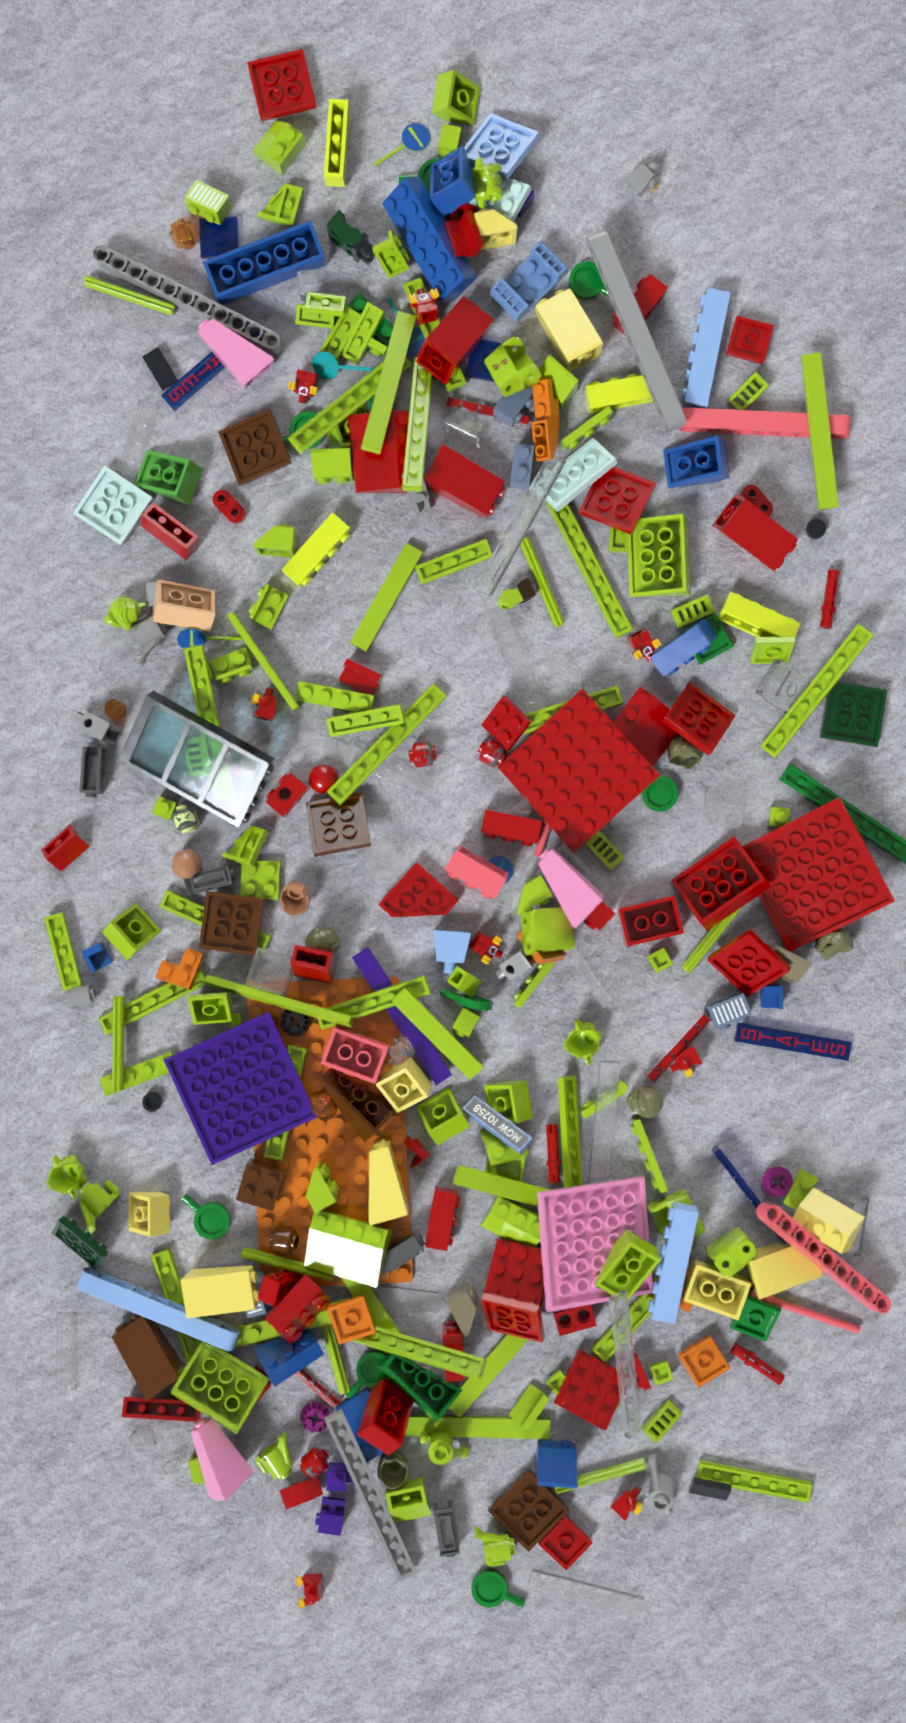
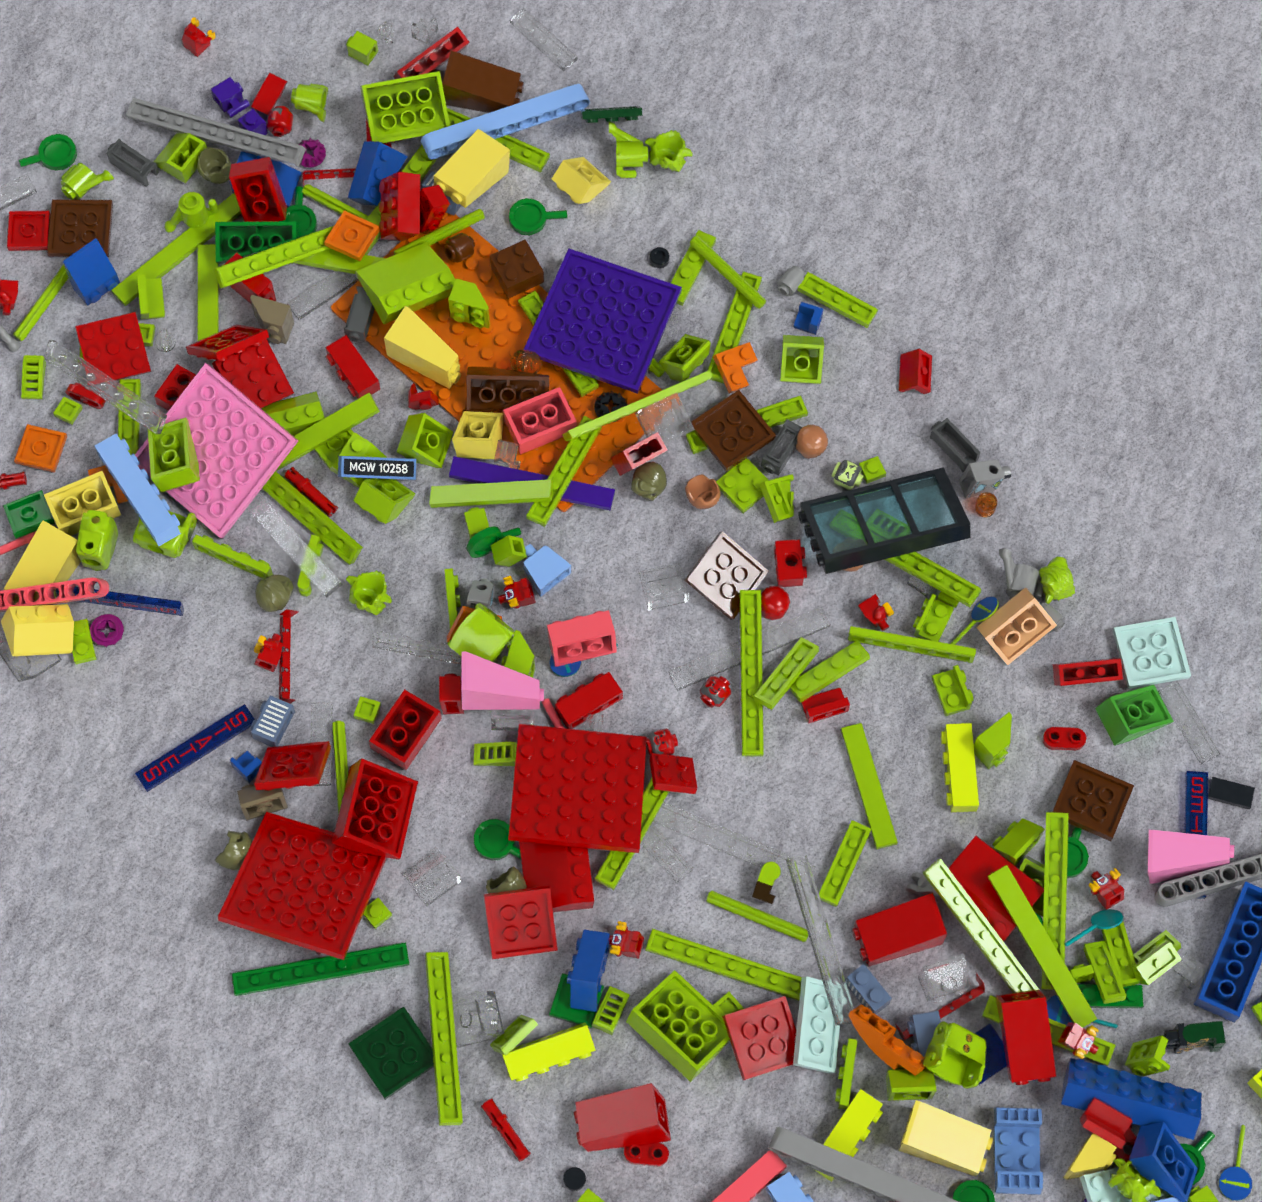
camera: 135 degrees right, 20 degrees down
(219, 1460) = (352, 58): bright pink slope -> none
(418, 895) = (609, 583): red plate -> none
(697, 463) = (727, 1134): blue slope -> none

